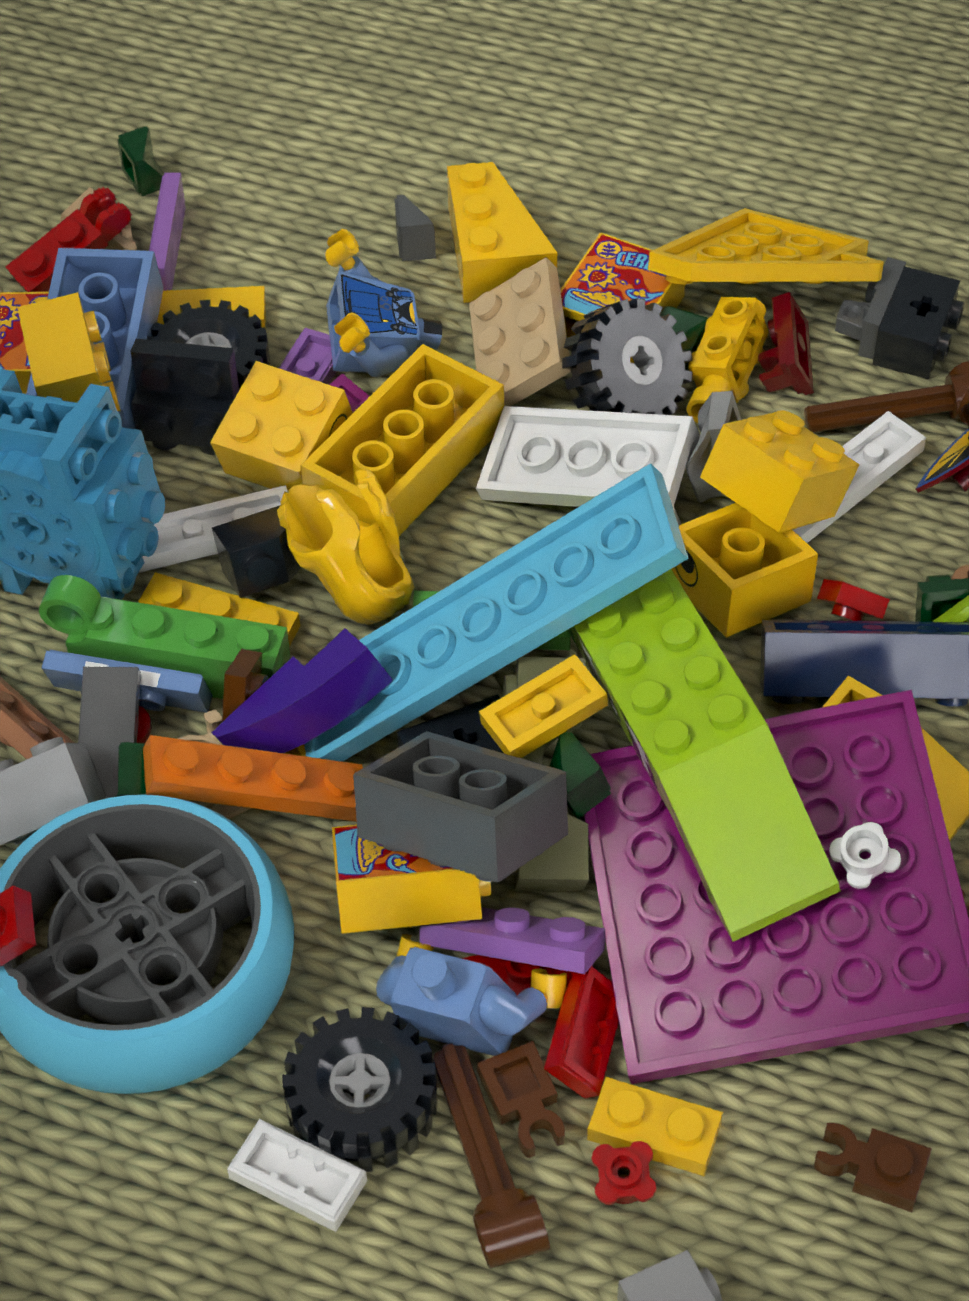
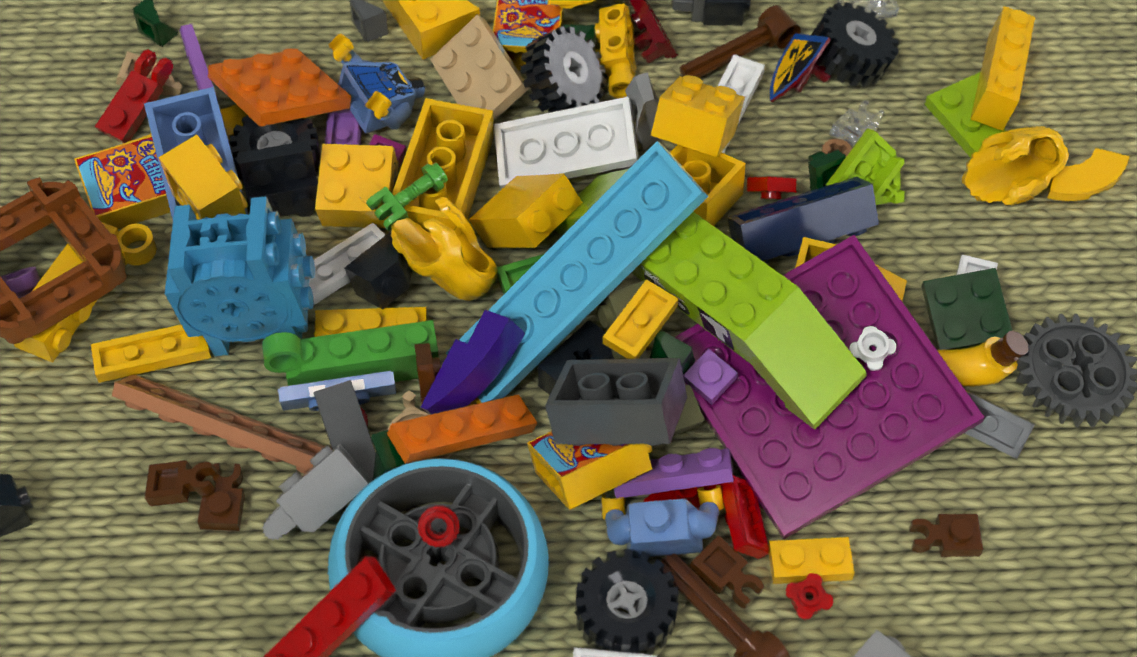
camera: 25 degrees left, 5 degrees up
(125, 886) = (434, 538): none -> red plate
(248, 279) = (278, 87): none -> orange plate
(301, 466) = (432, 176): none -> bright green hinge
(480, 525) = (526, 211): none -> yellow brick
(620, 820) = (710, 376): none -> medium lavender plate

